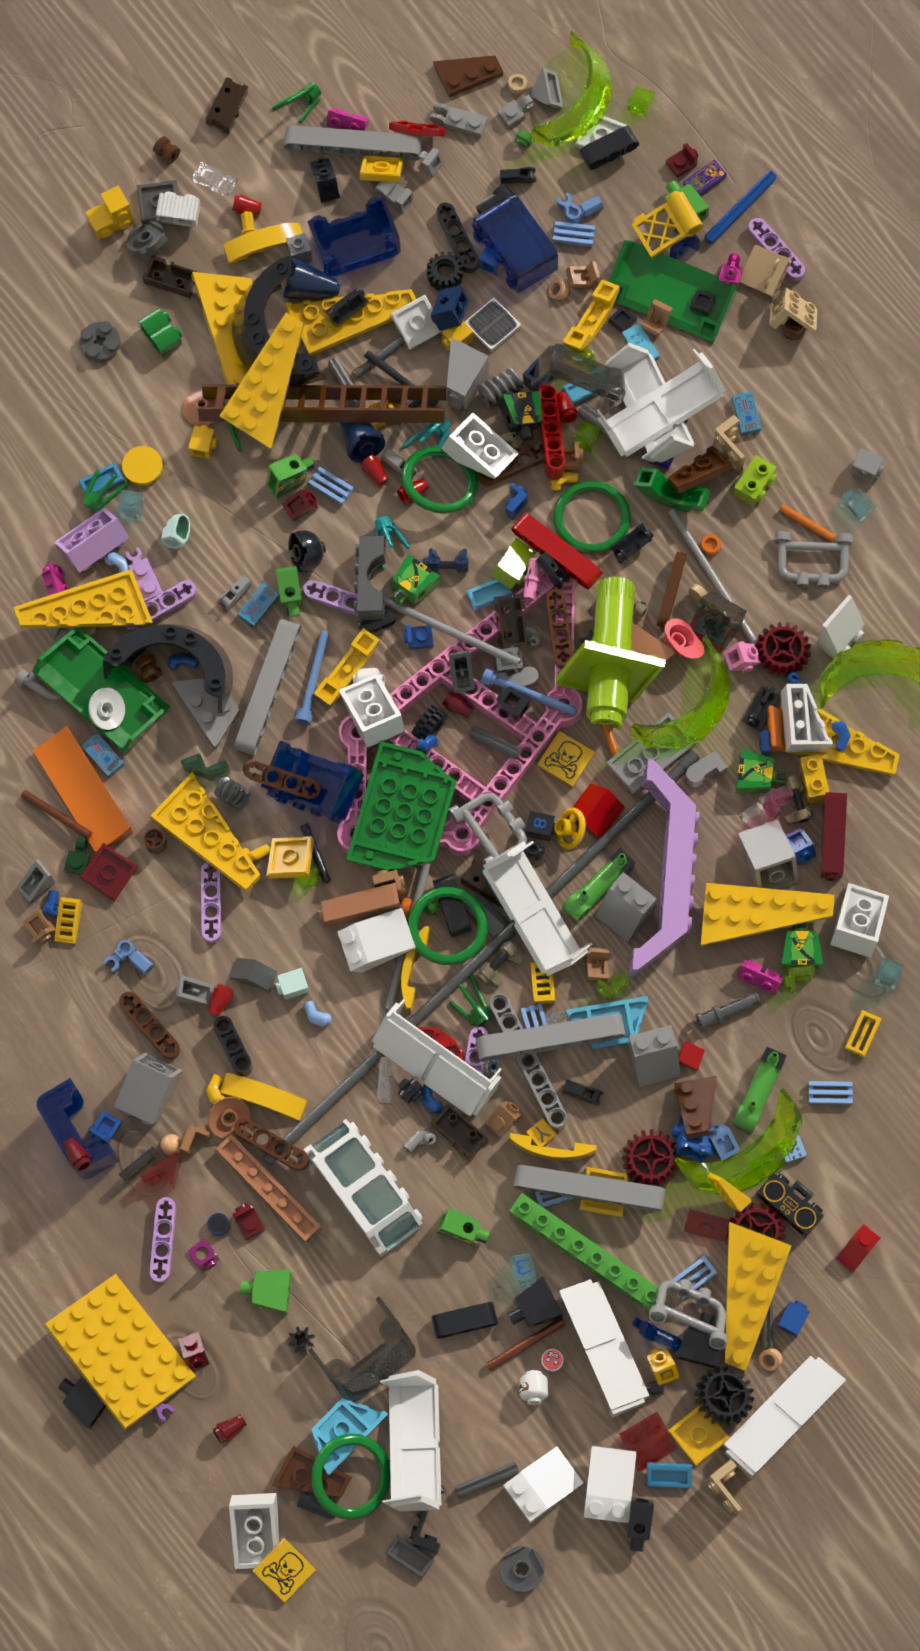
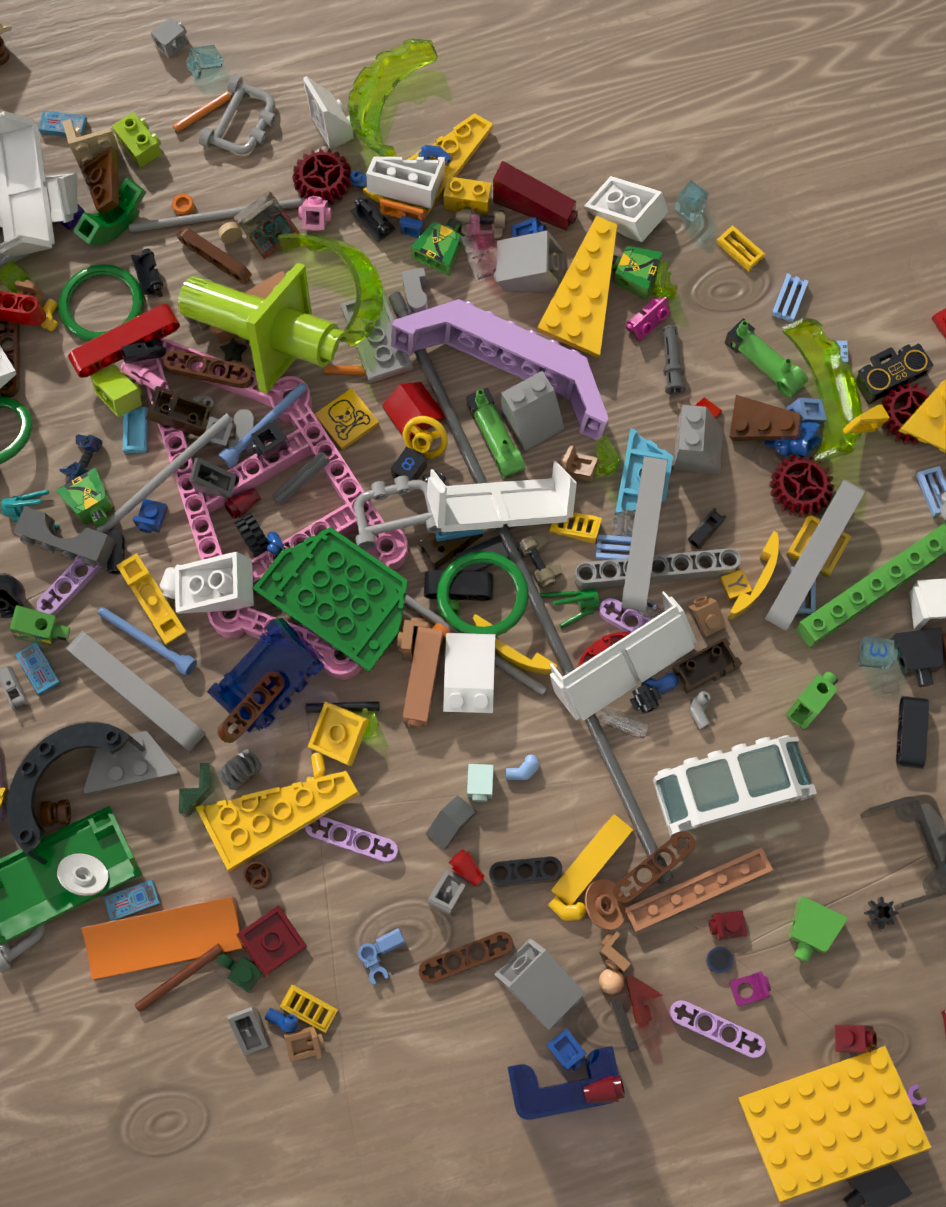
camera: 70 degrees left, 0 degrees up
(182, 658) = (60, 773): blue arm -> none
(516, 503) = (46, 362): blue bracket -> none
(682, 639) = (272, 261): coral piece -> none
(707, 1225) = (886, 459): clear red tile -> none

